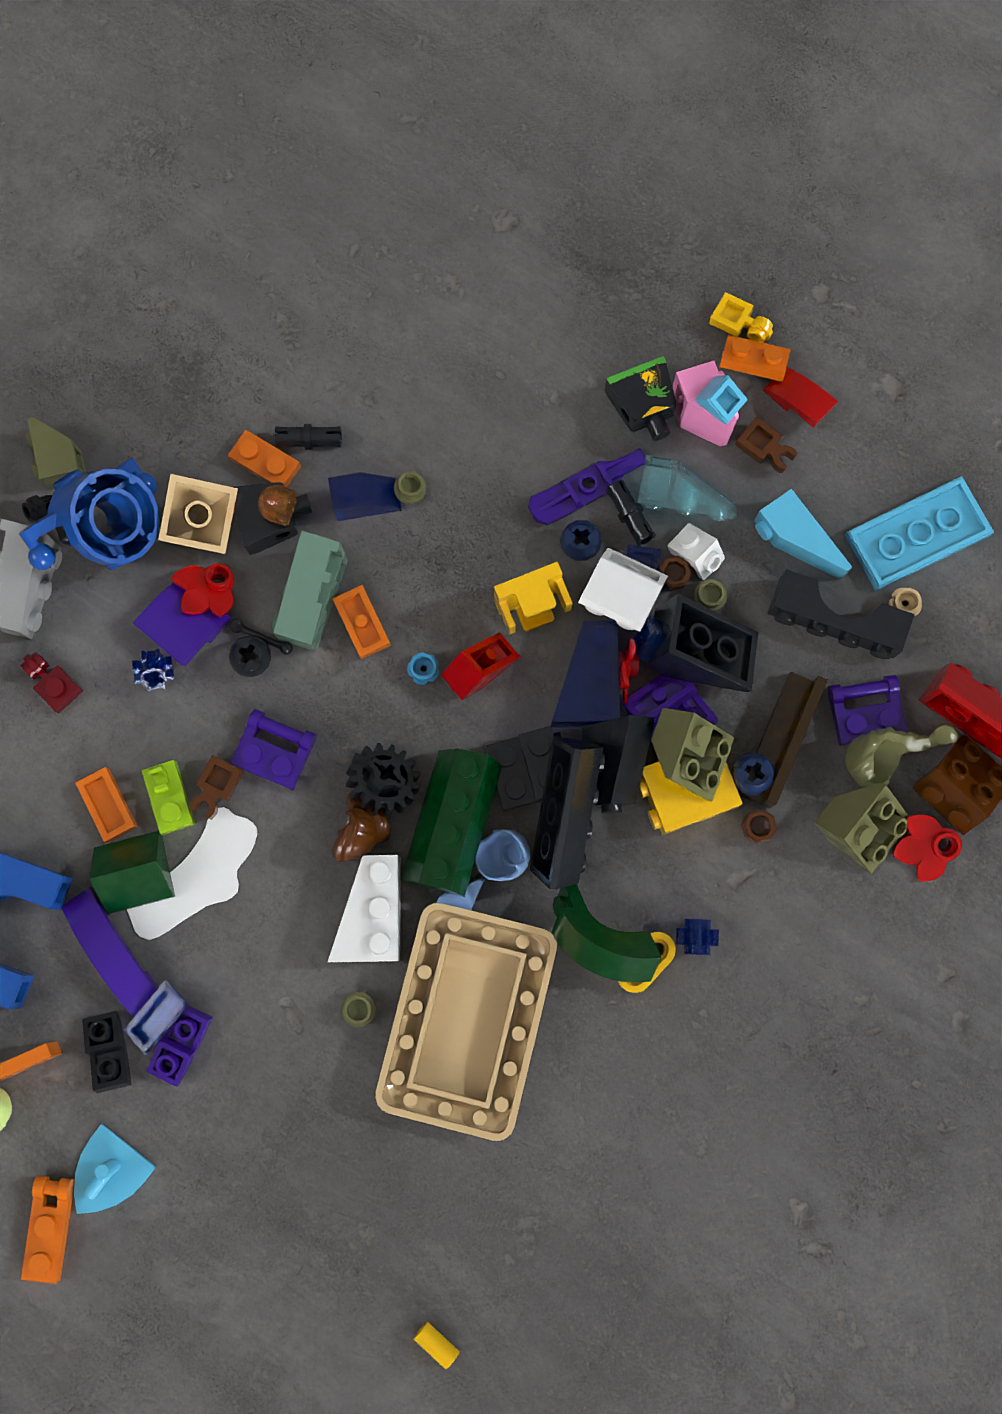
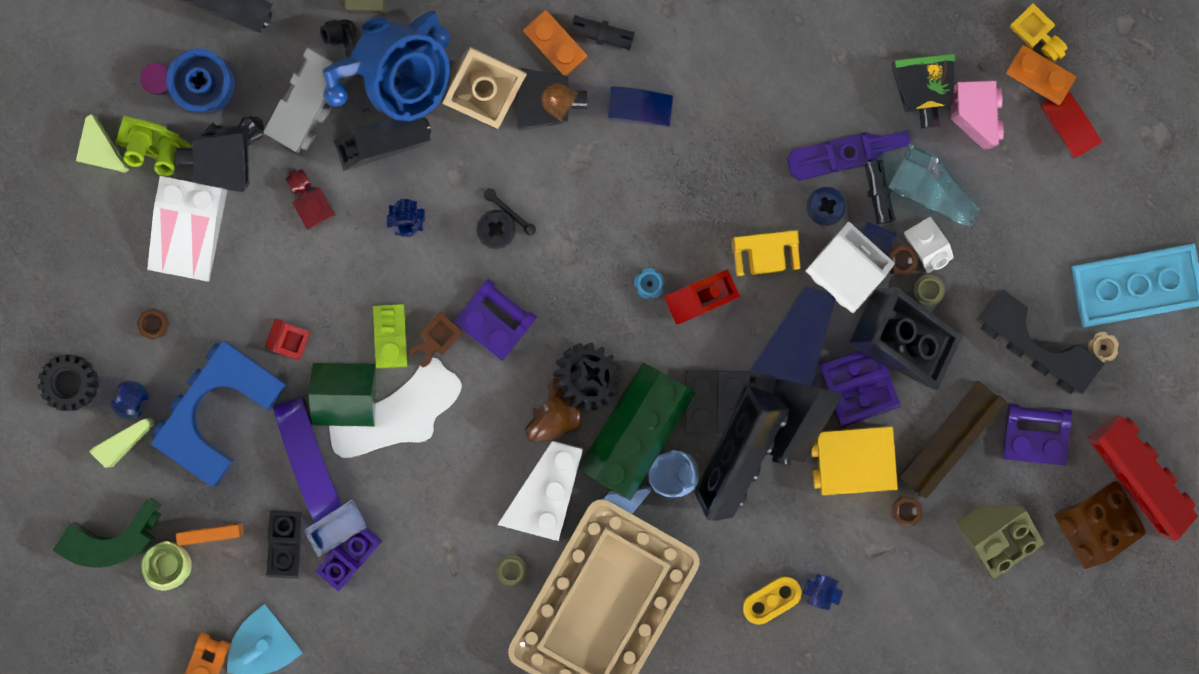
camera: 10 degrees right, 10 degrees up
(61, 830) = (287, 339): none -> red slope
(106, 805) = (333, 327): orange tile -> none
(109, 597) = (381, 141): none -> black slope
(175, 631) = (442, 177): dark purple slope -> none
(201, 590) = (467, 157): red plate -> none
(309, 591) = (564, 186): sand green wedge -> none
(361, 622) = (605, 225): orange plate -> none
(410, 488) = (683, 109): olive plate -> none
(599, 948) = (733, 578): dark green arch -> none
(628, 667) = (835, 335): red plate -> none
(649, 638) = (860, 320): clear blue tile -> none
(691, 751) = (864, 433): olive slope -> none
(721, 398) = (990, 121): medium azure slope -> none
(740, 776) = (914, 477): dark blue piece -> none
(762, 441) = (1021, 159): reddish brown plate -> none
(796, 532) = (1024, 253): medium azure slope -> none
(877, 754) = (1028, 479): olive hair -> none
(922, 848) = (1045, 569): red plate -> none

